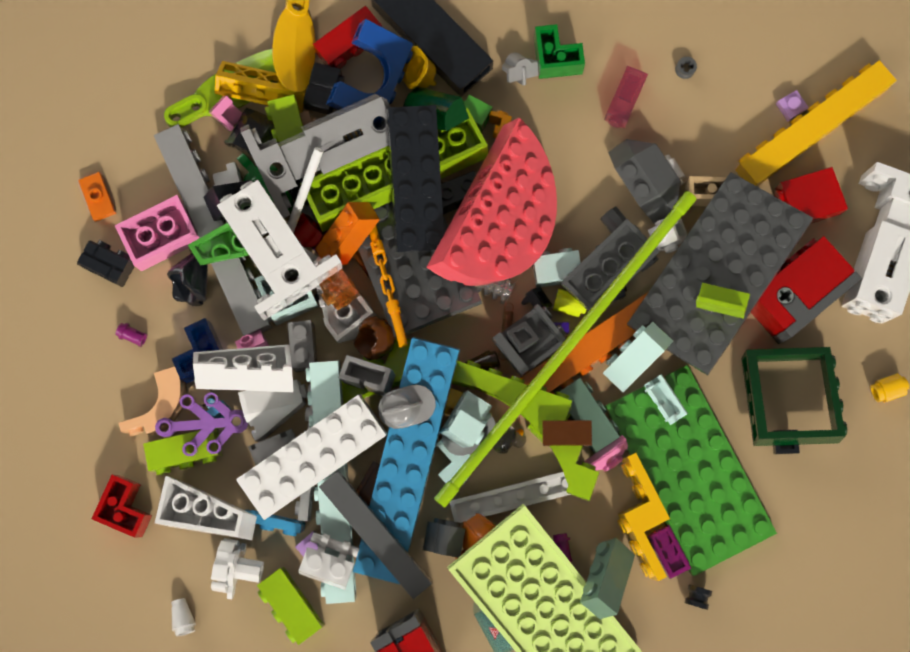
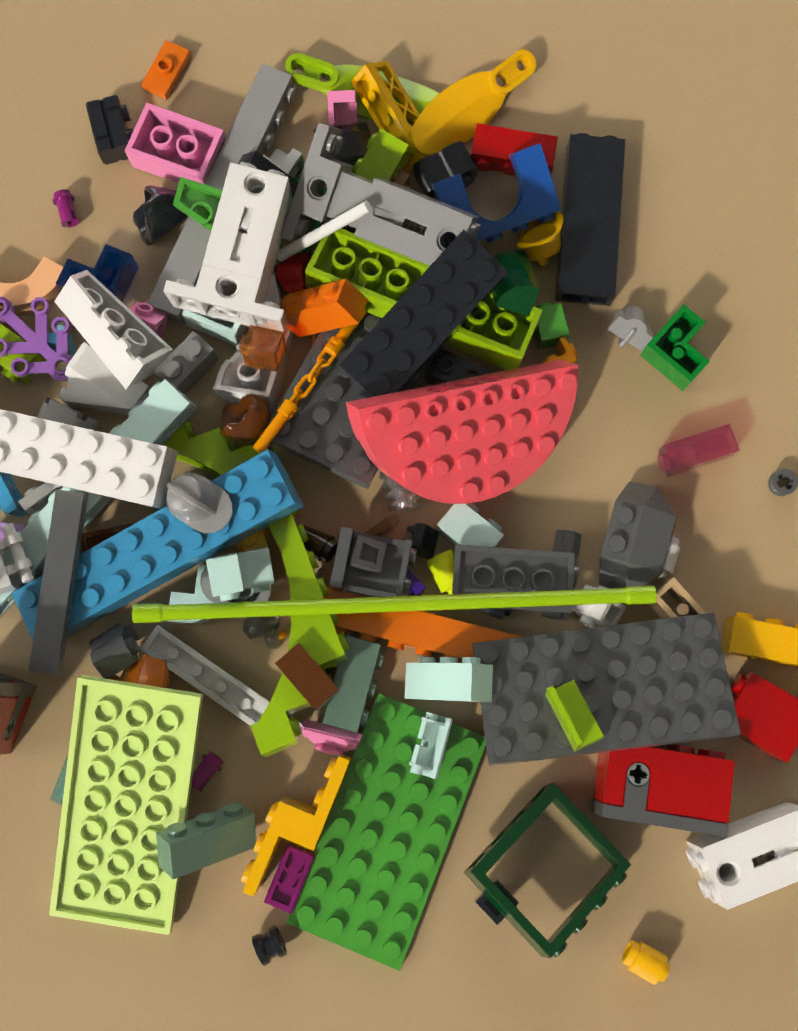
camera: 45 degrees right, 0 degrees up
(367, 375) = (200, 442): light grey piece -> none

